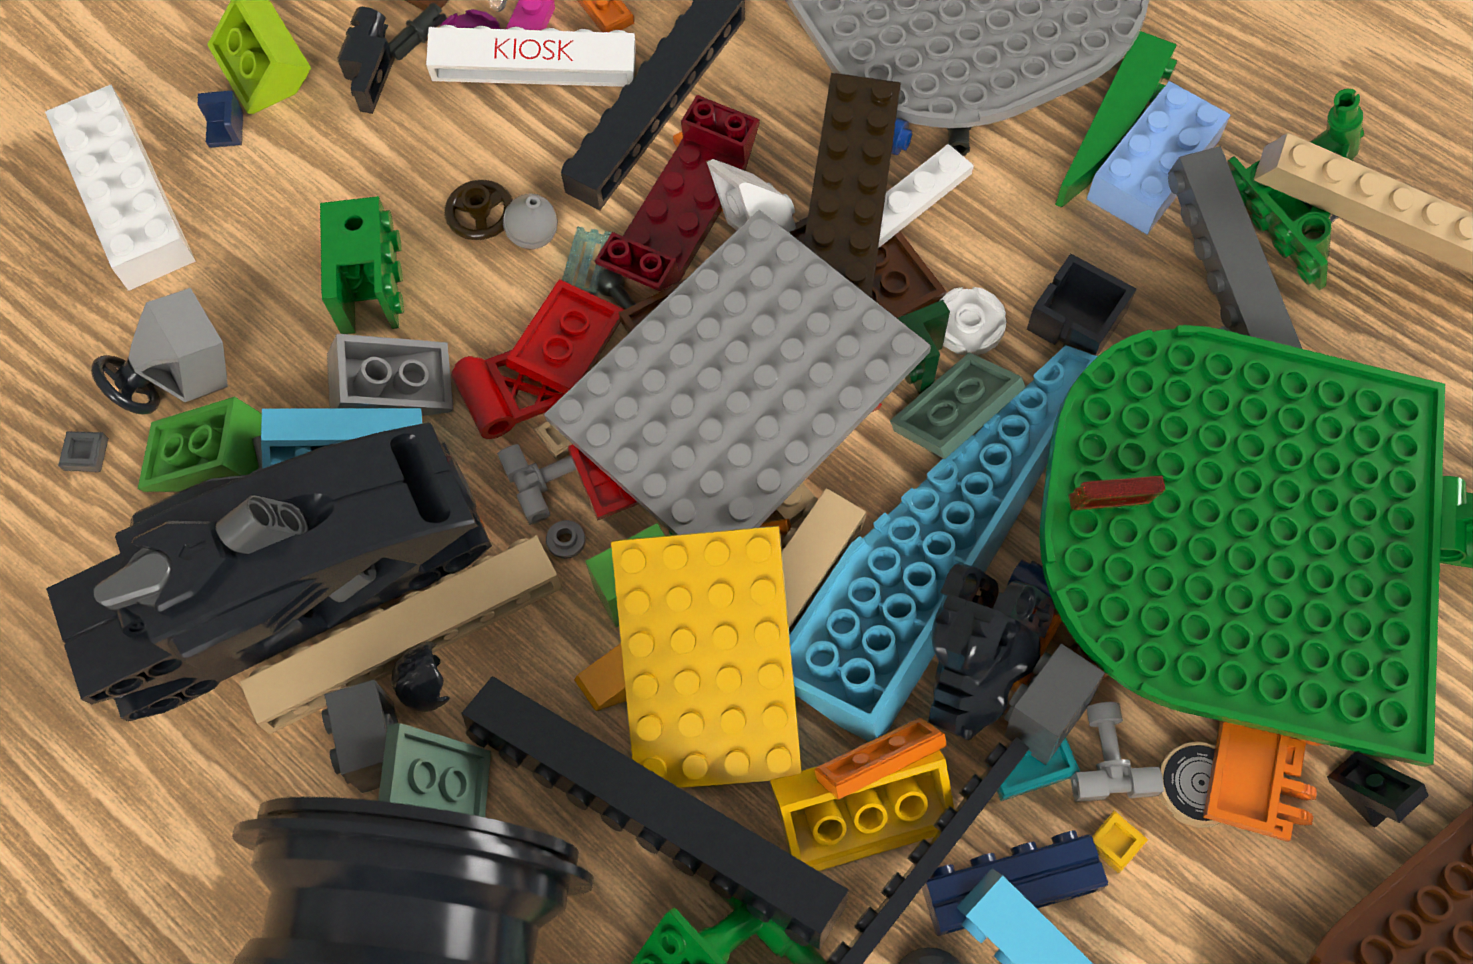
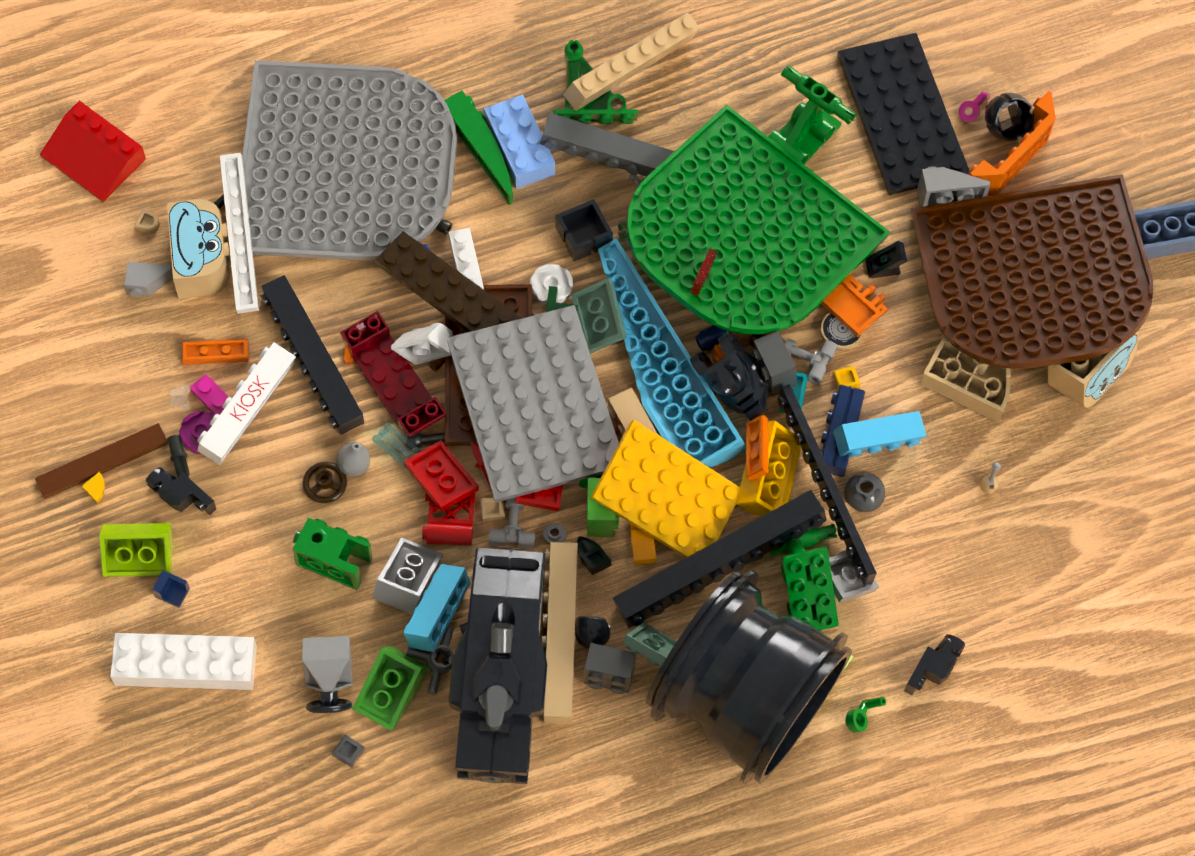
camera: 65 degrees left, 0 degrees up
(559, 611) = (592, 555): none -> black plate

